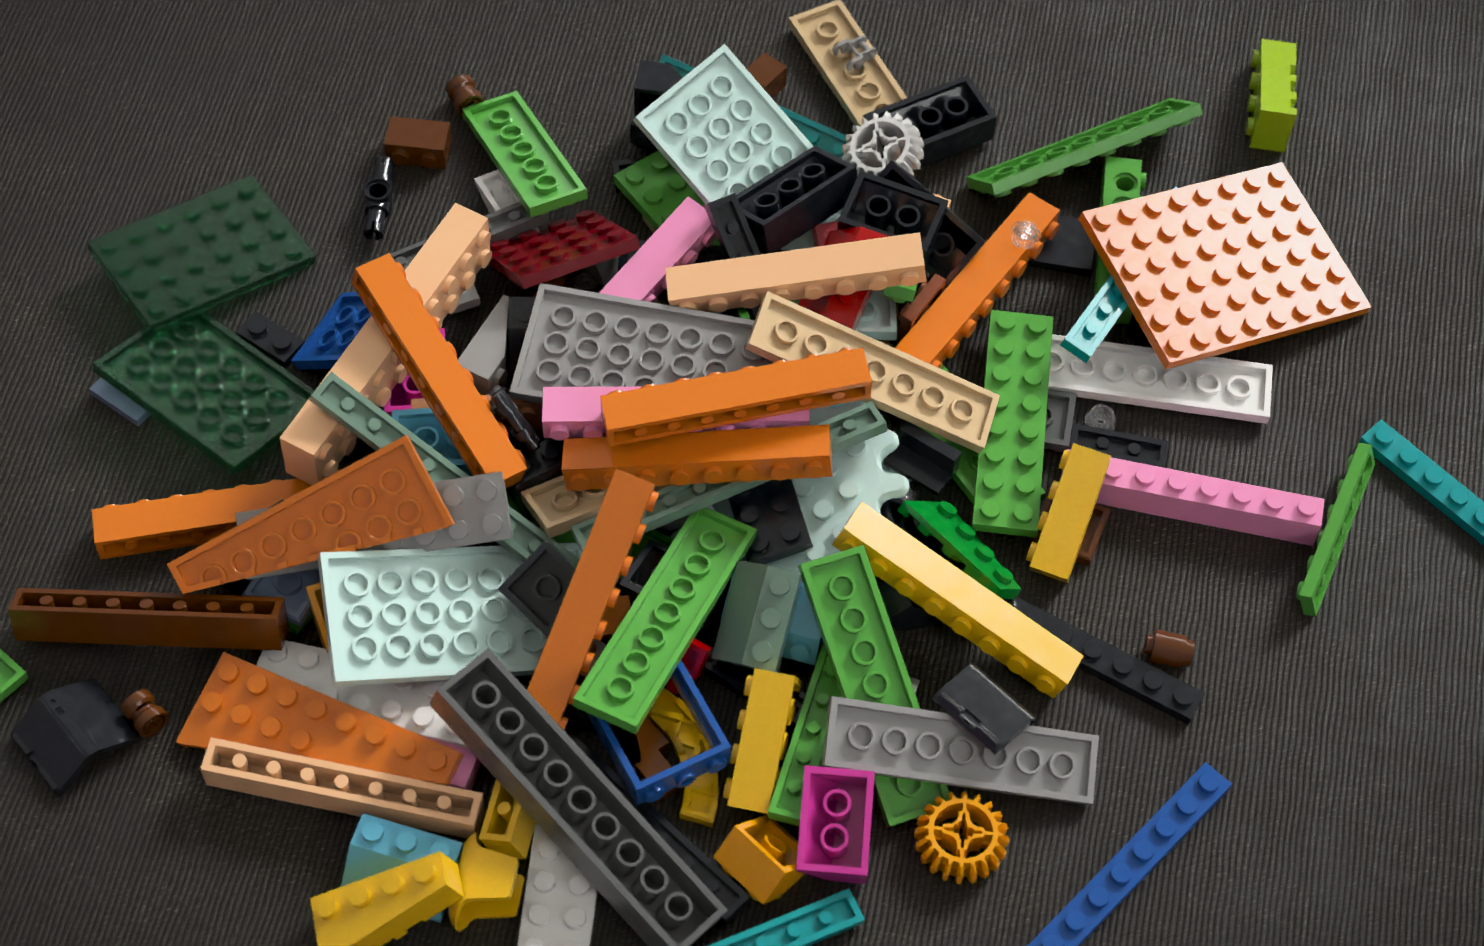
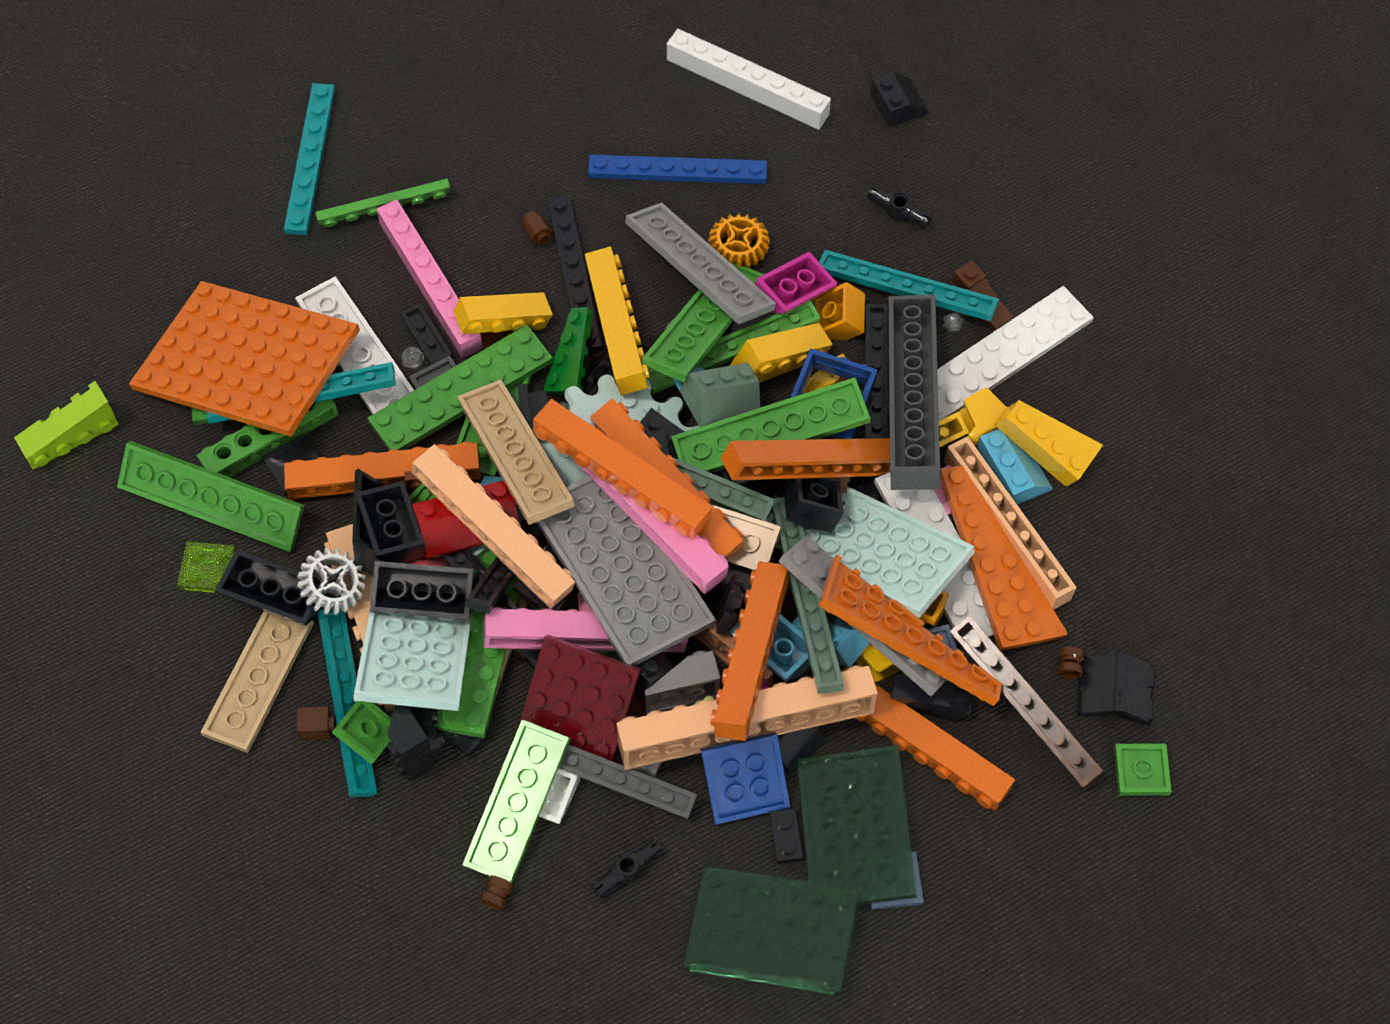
camera: 130 degrees left, 5 degrees up
(418, 142) = (562, 885): reddish brown brick -> none
(851, 46) = (248, 673): light grey piece -> none
(984, 708) = (665, 261): black piece -> none
(1017, 110) = (204, 565): none -> clear neon green plate
(1024, 234) = (326, 459): clear plate -> none

